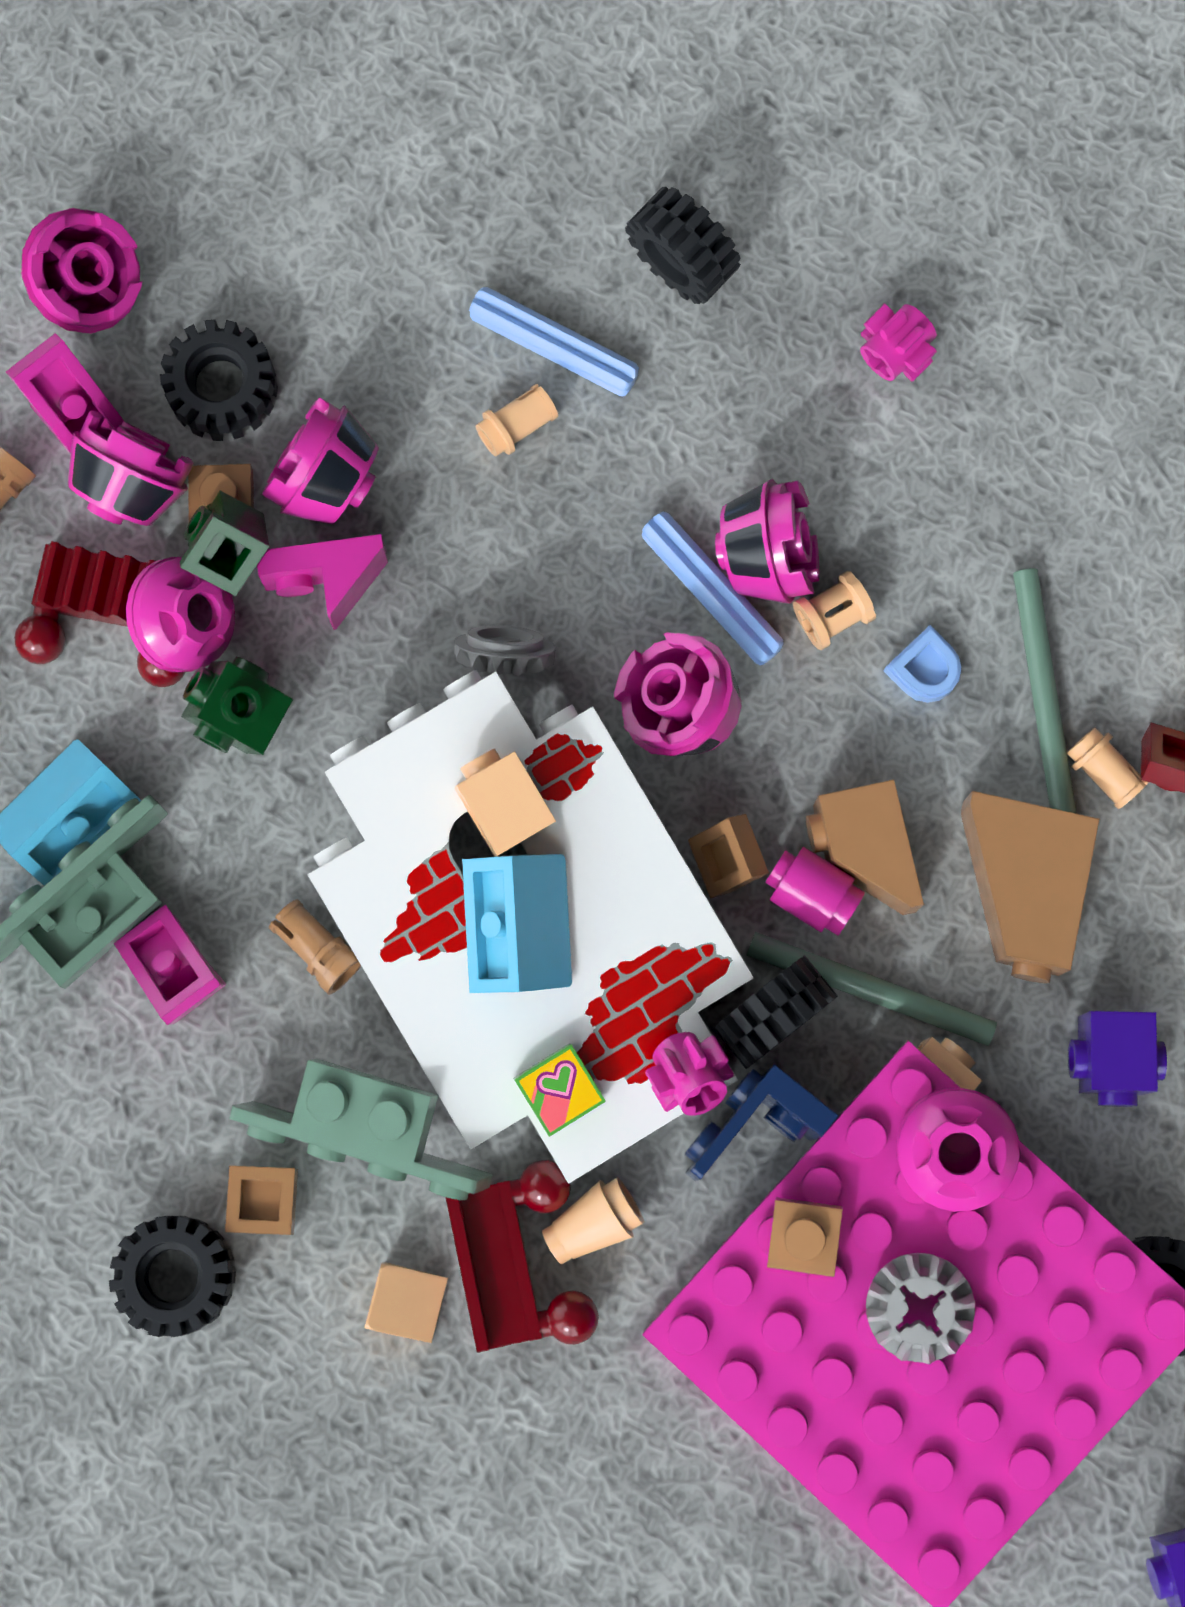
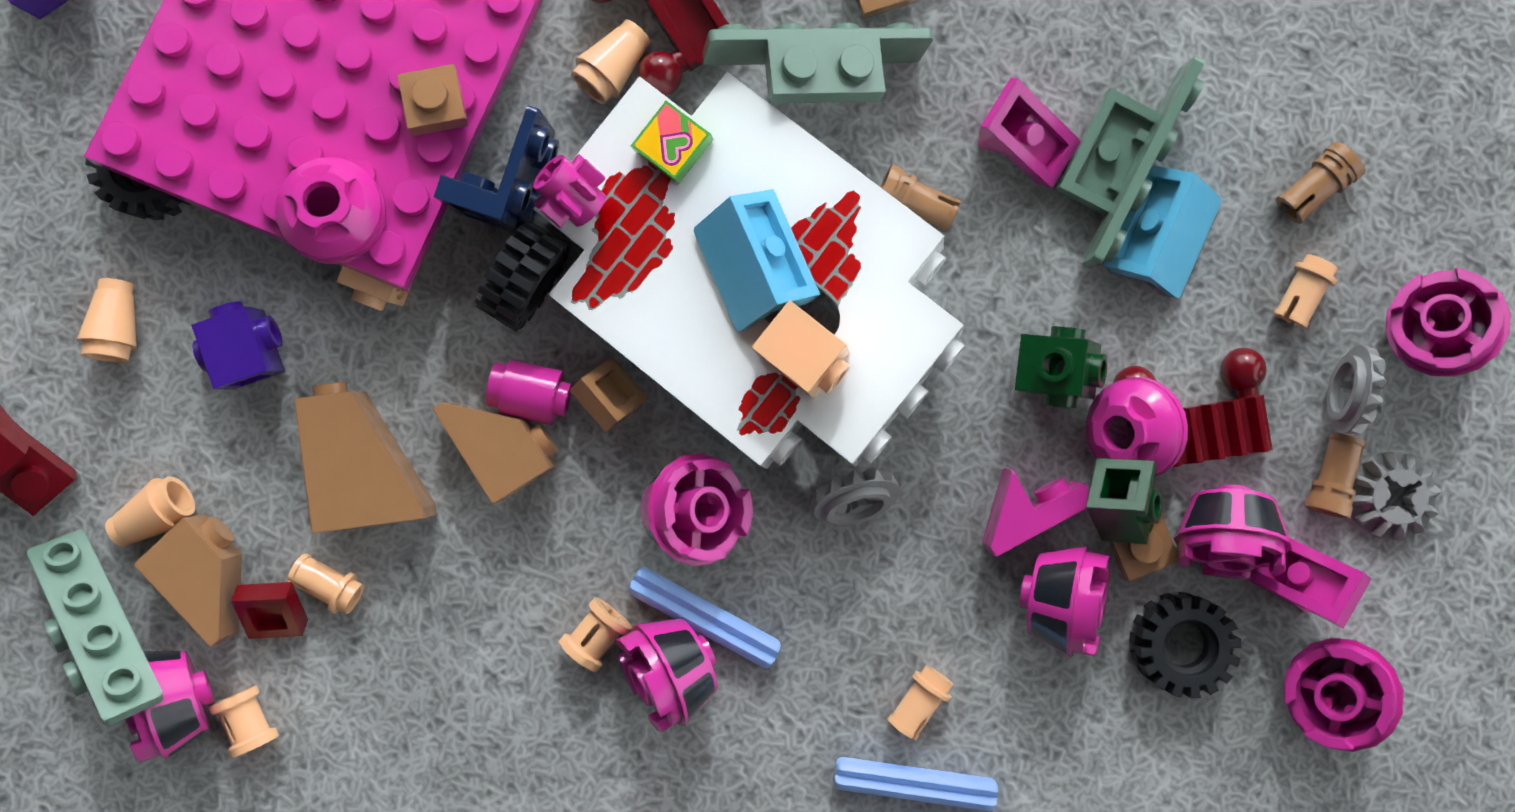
camera: 160 degrees right, 10 degrees up
(877, 990) = (454, 332): sand green bar -> none
(925, 1276) = (323, 100): light grey gear -> none
(926, 667) = (503, 615): light blue tile -> none
(1044, 690) = (399, 630): sand green bar -> none

